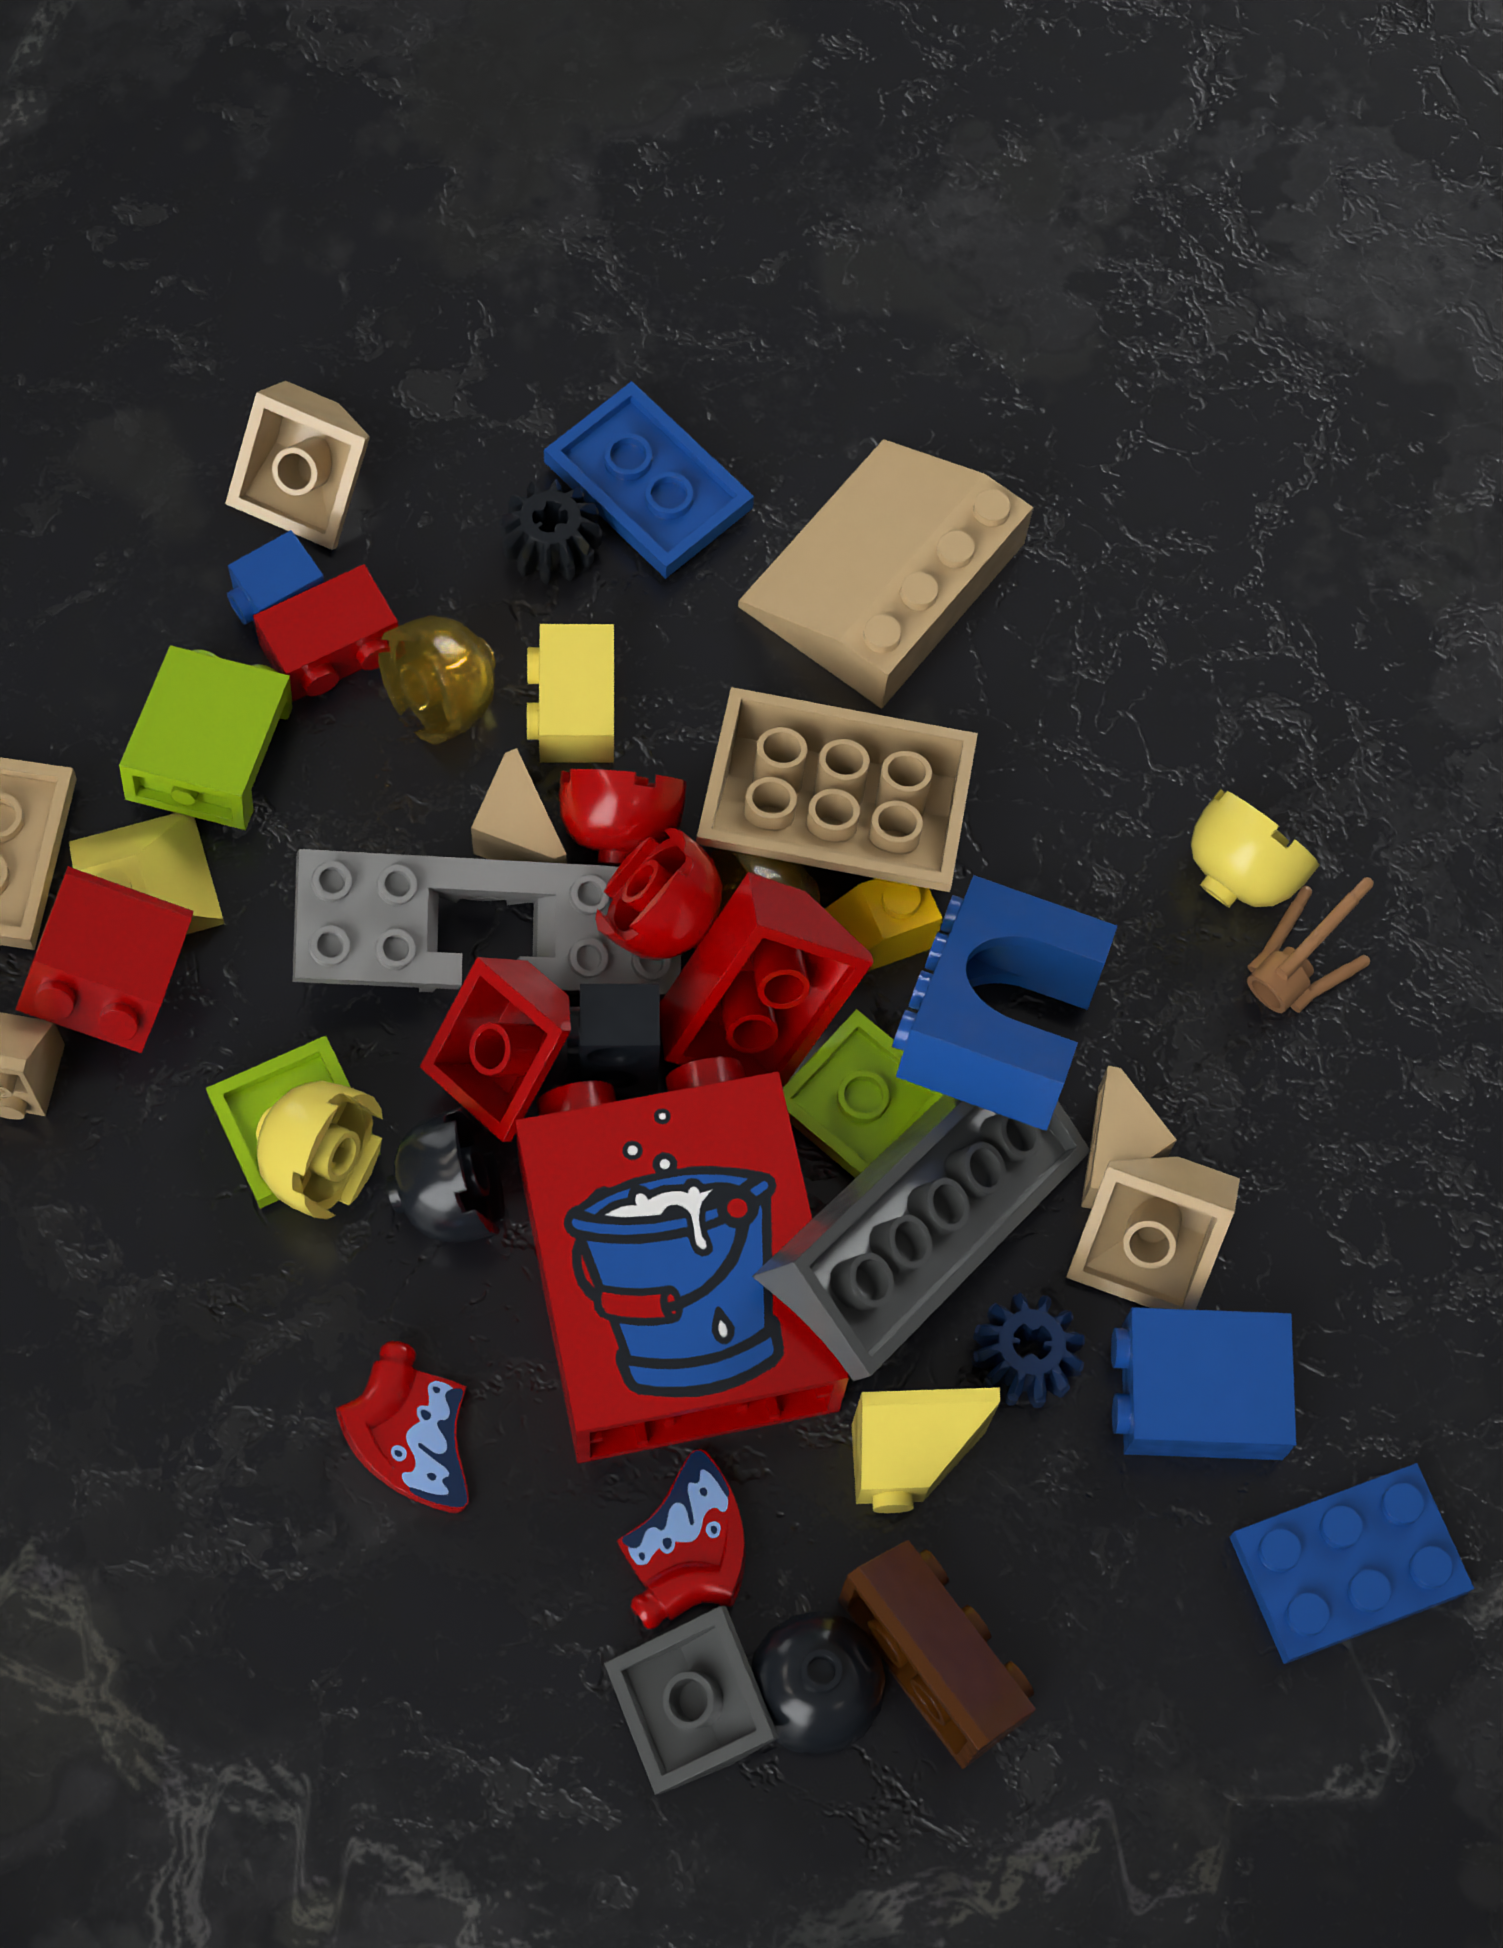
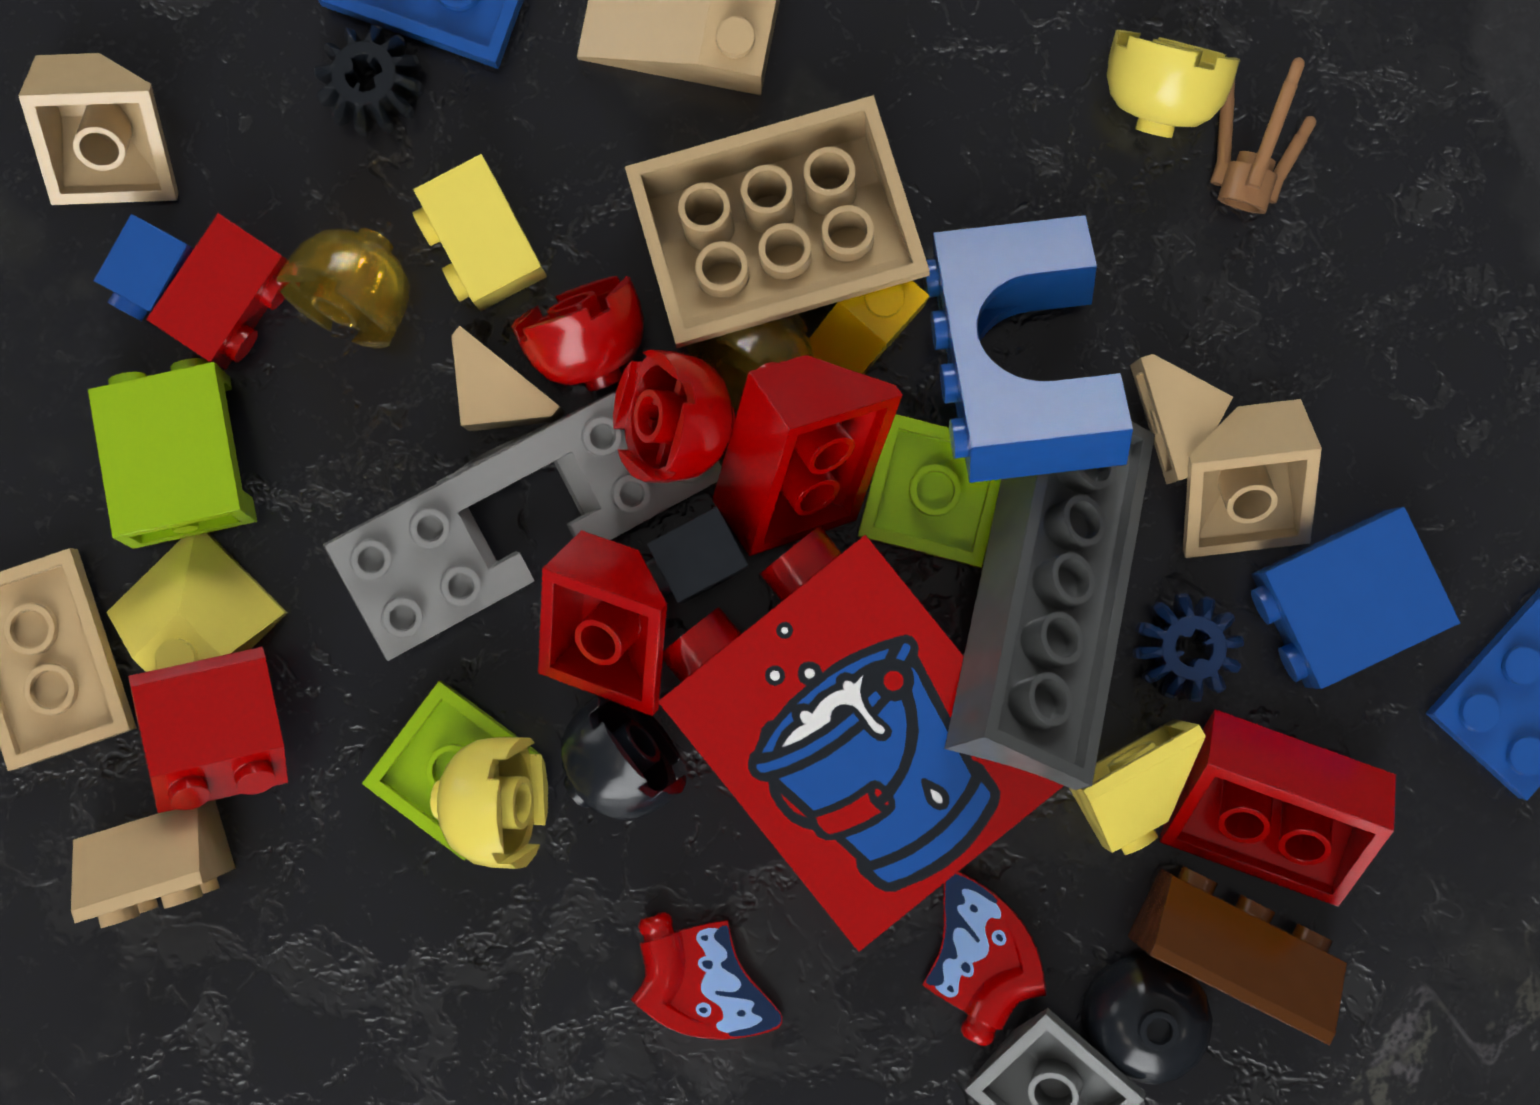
camera: 25 degrees left, 20 degrees up
(1040, 1542) = (1282, 809): none -> red slope

